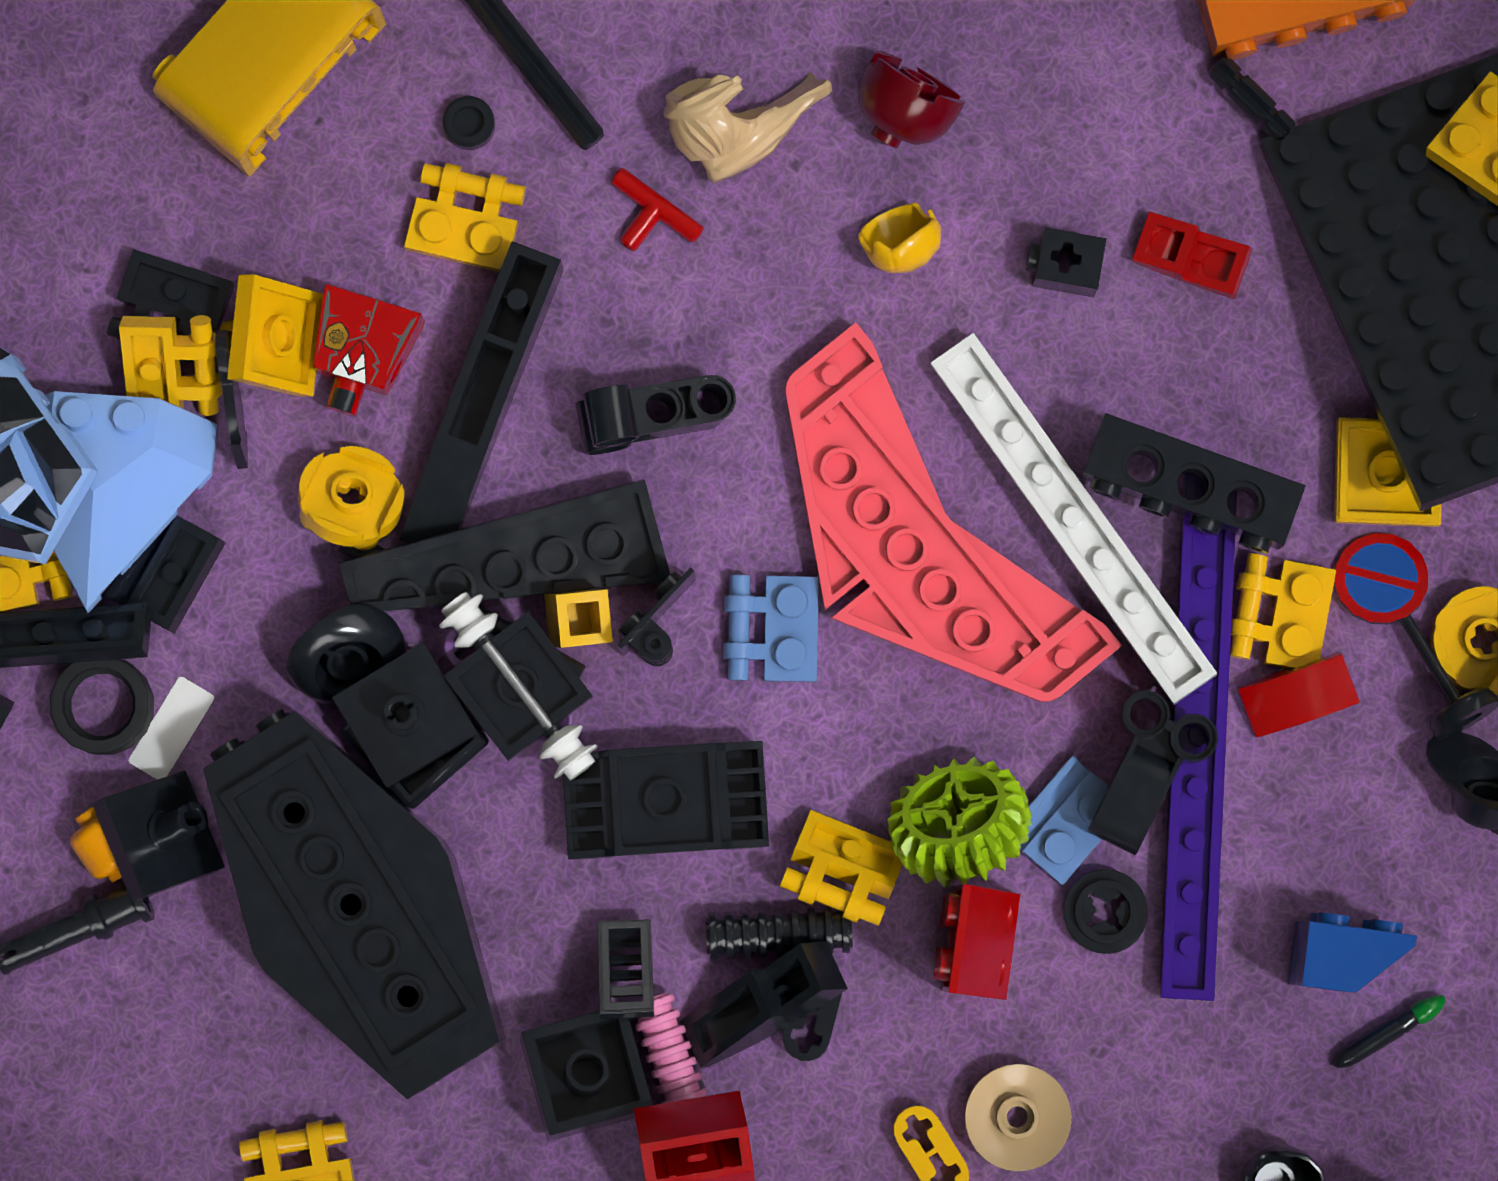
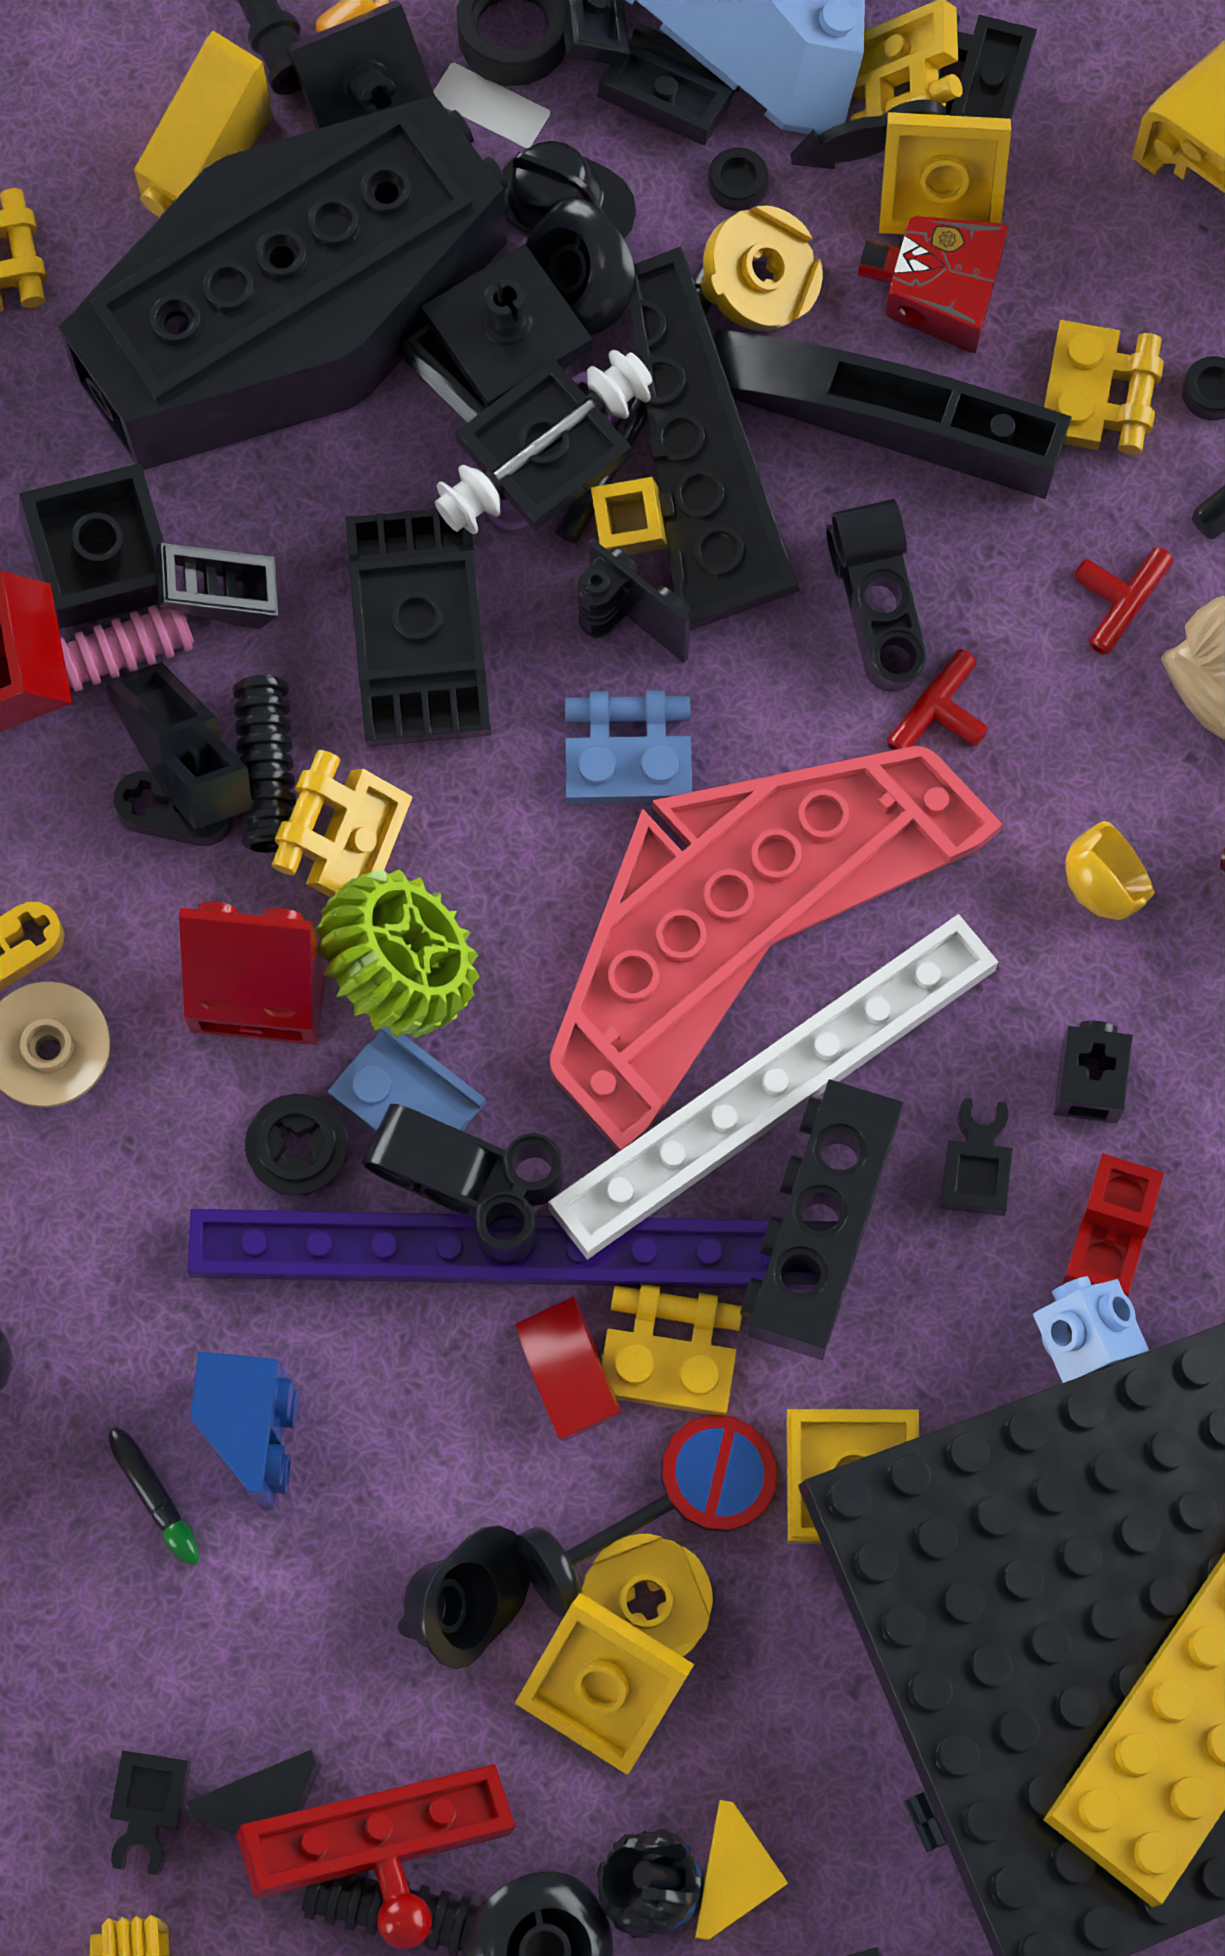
camera: 90 degrees right, 10 degrees down
(202, 979) = (213, 115): none -> yellow slope
(253, 672) = (557, 171): none -> black piece
(255, 515) = (737, 179): none -> black tile
(743, 371) = (936, 705): none -> red piece
(1145, 359) = (976, 1170): none -> black plate
(1281, 278) = (1089, 1327): none -> light blue brick

